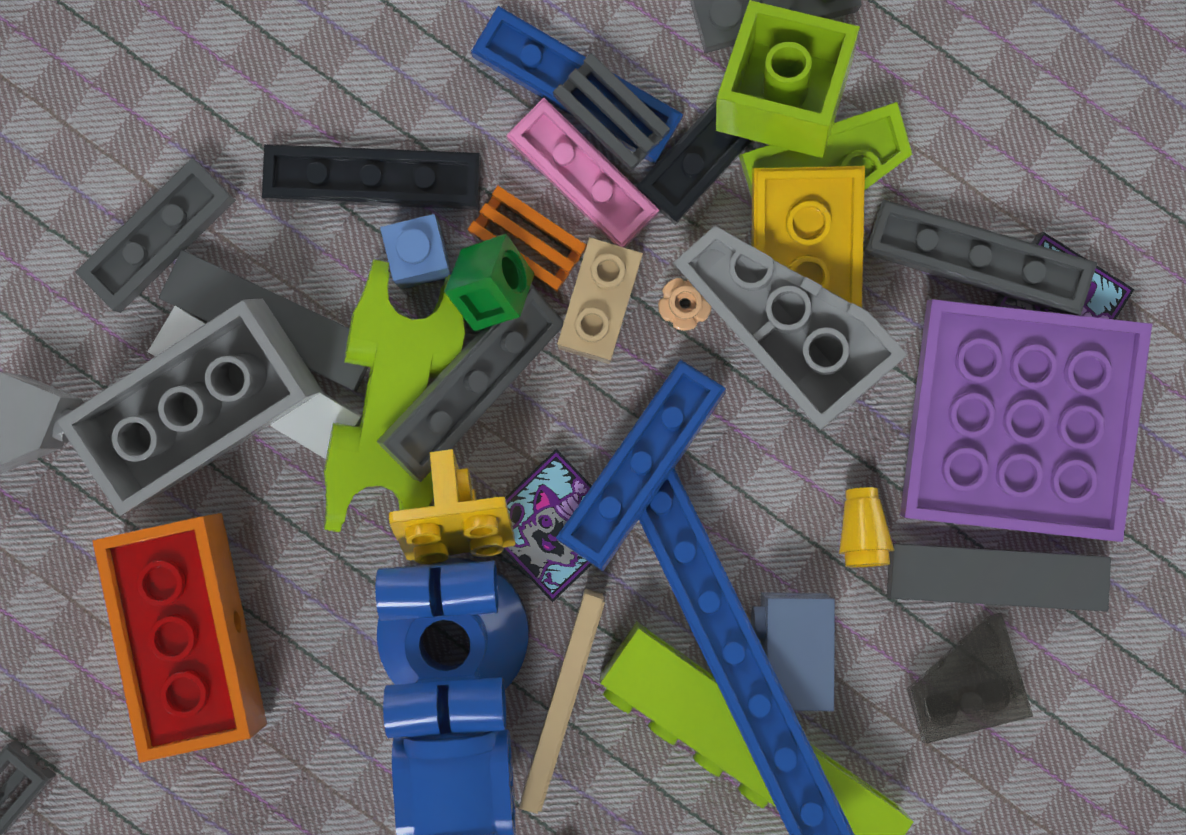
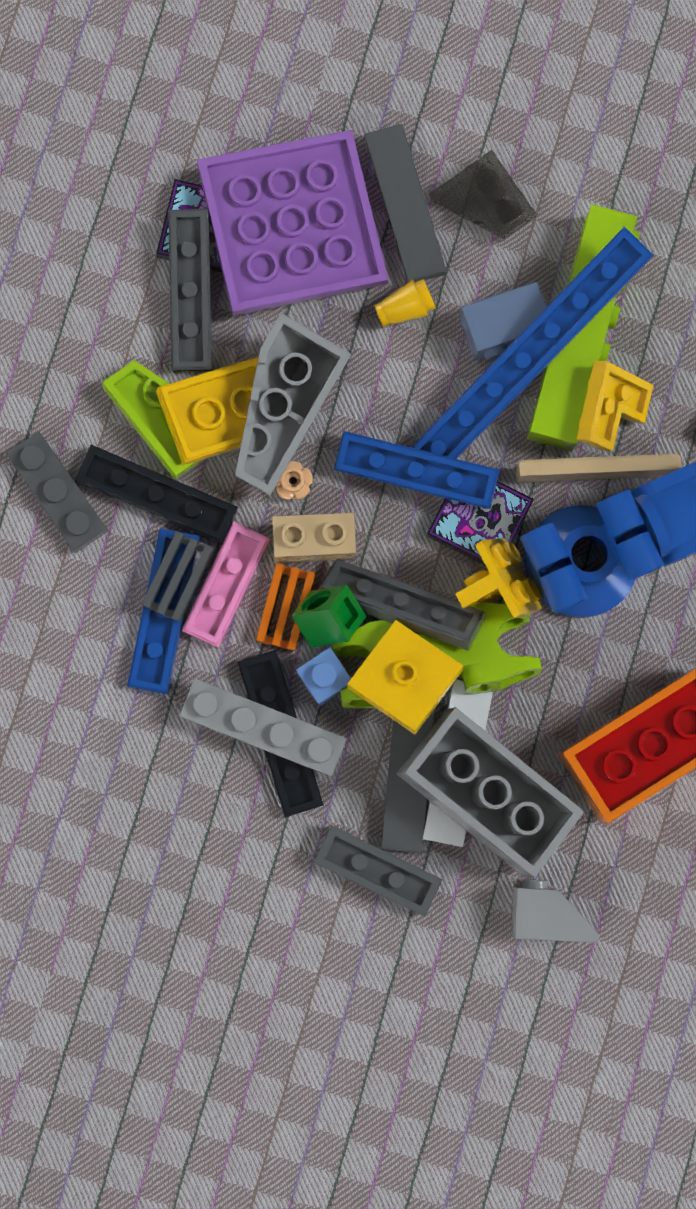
camera: 115 degrees left, 5 degrees down
(371, 347) = (405, 677): none -> yellow plate
(382, 153) = (263, 727): none -> light grey plate
(647, 750) = (609, 397): none -> yellow plate
(785, 78) = (117, 459): lime brick -> none

